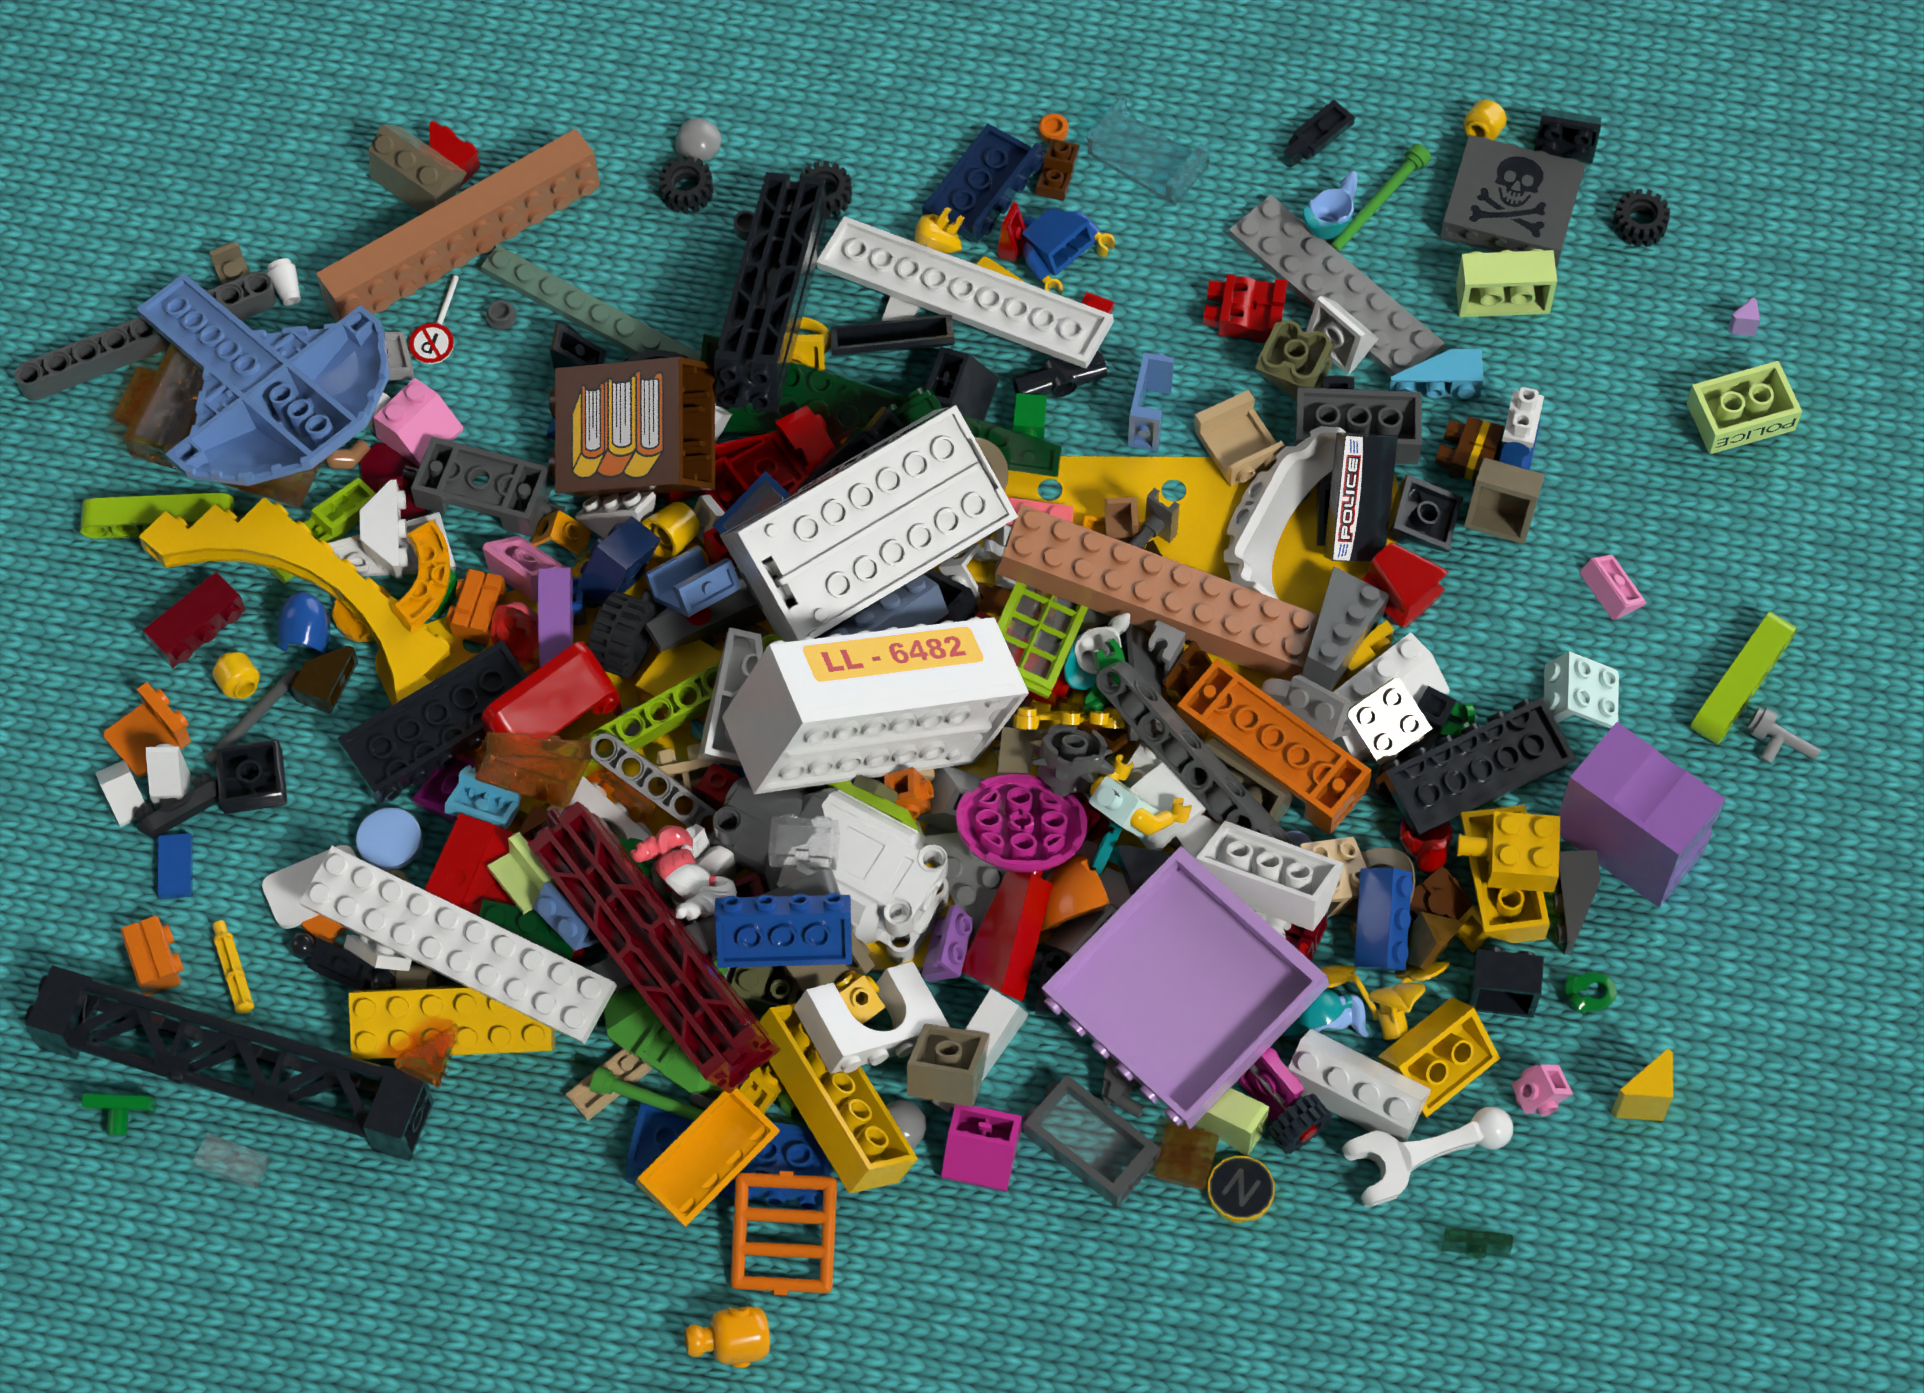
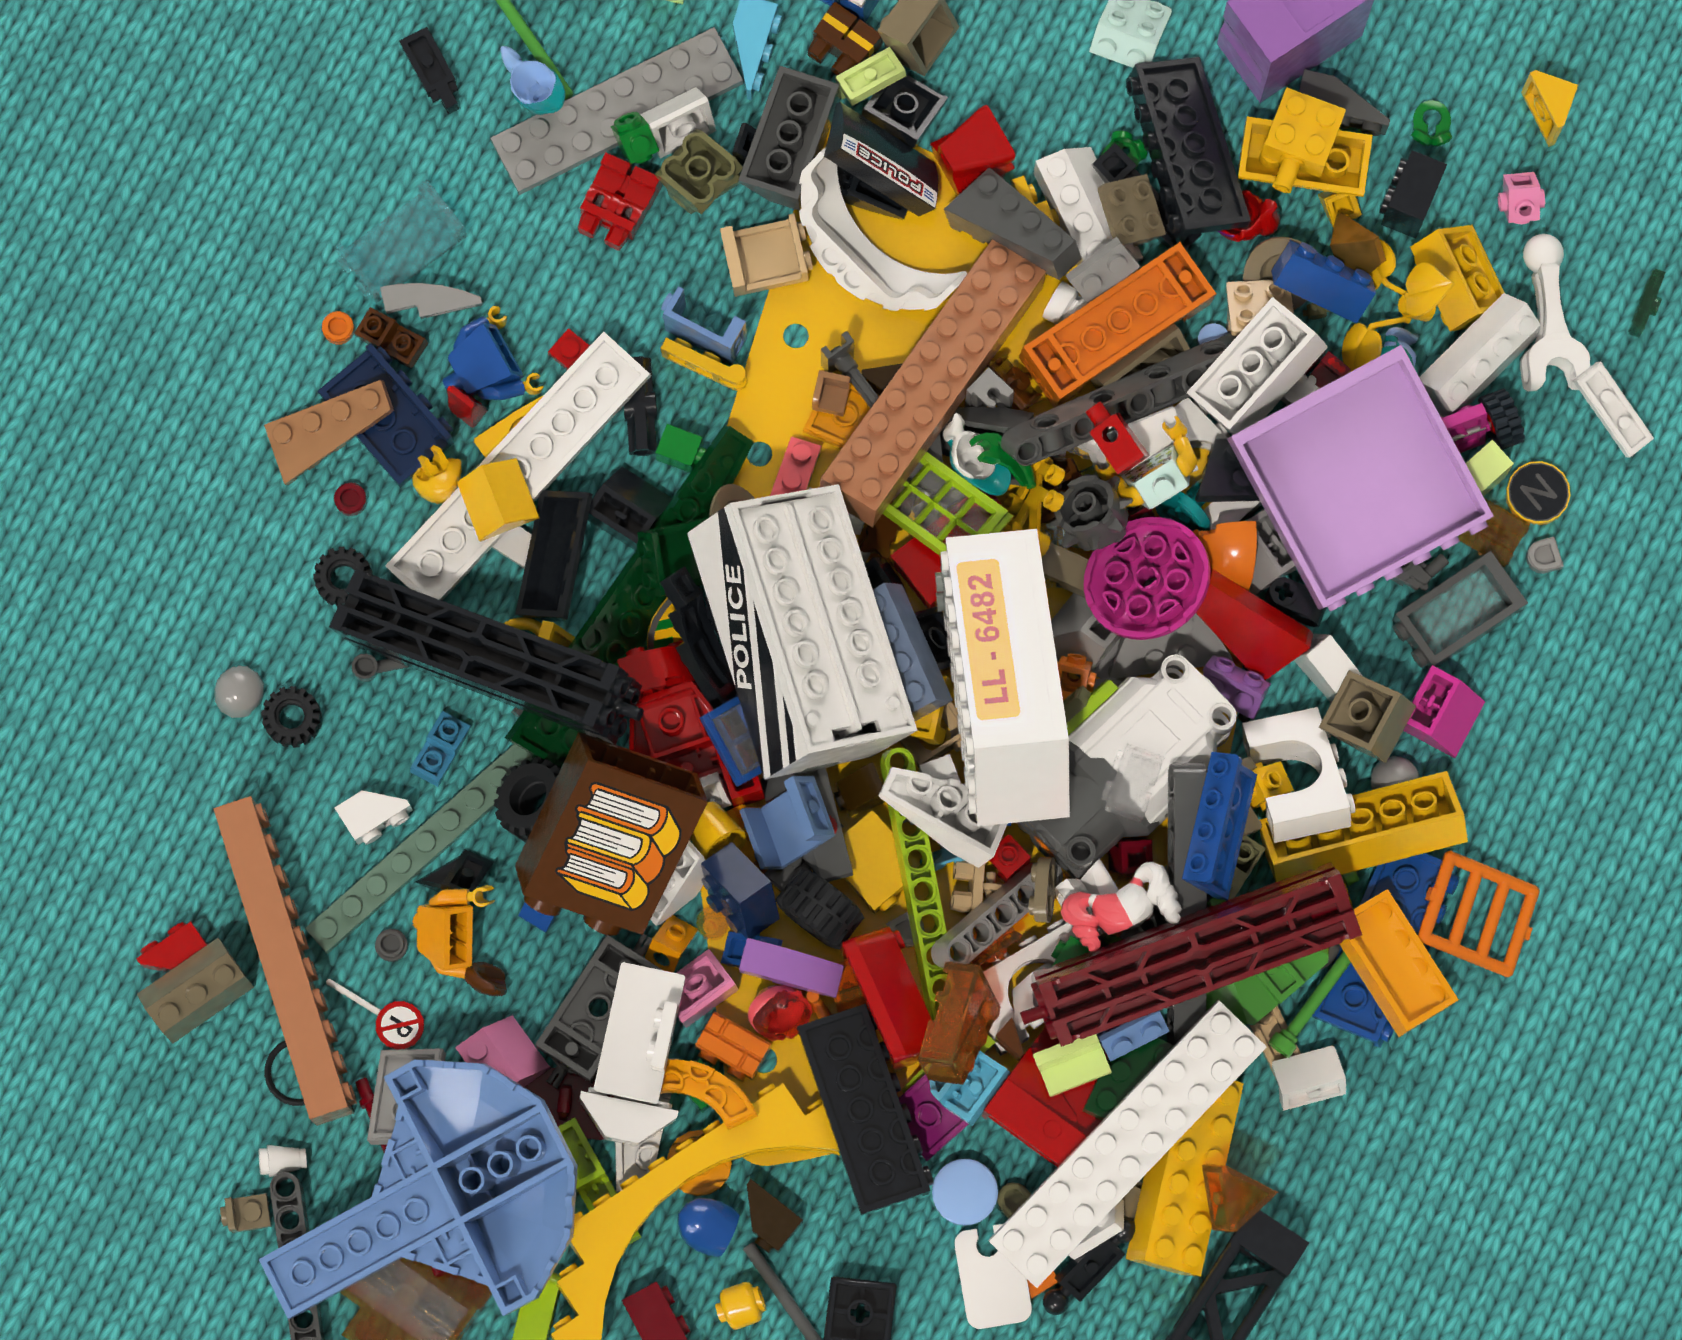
camera: 75 degrees left, 15 degrees up
(462, 513) = (639, 1033): none -> white bracket
(506, 348) = (446, 939): none -> light orange torso
(576, 1117) = (1309, 1077): none -> white panel
(612, 264) = (370, 813): none -> white slope
(689, 812) = (1042, 902): none -> dark tan plate
(691, 308) = (440, 748): none -> dark azure slope
(734, 1336) = (1564, 987): light orange piece -> none
(899, 179) = (350, 499): none -> dark red tile
(931, 278) = (497, 498): none -> yellow slope
(955, 136) = (317, 431): none -> medium nougat wing
(1100, 183) = (428, 298): none -> light grey slope
(1117, 417) = (704, 364): none -> yellow plate
(1145, 755) = (1126, 449): none -> red torso
(1177, 1212) = (1544, 556): none -> light grey tile
(1304, 296) = (634, 138): none -> green brick
(1350, 1235) = (1613, 409): none -> white tile
(1440, 896) = (1309, 224): reddish brown piece -> none
(1443, 474) = (870, 76): none -> yellowish green panel

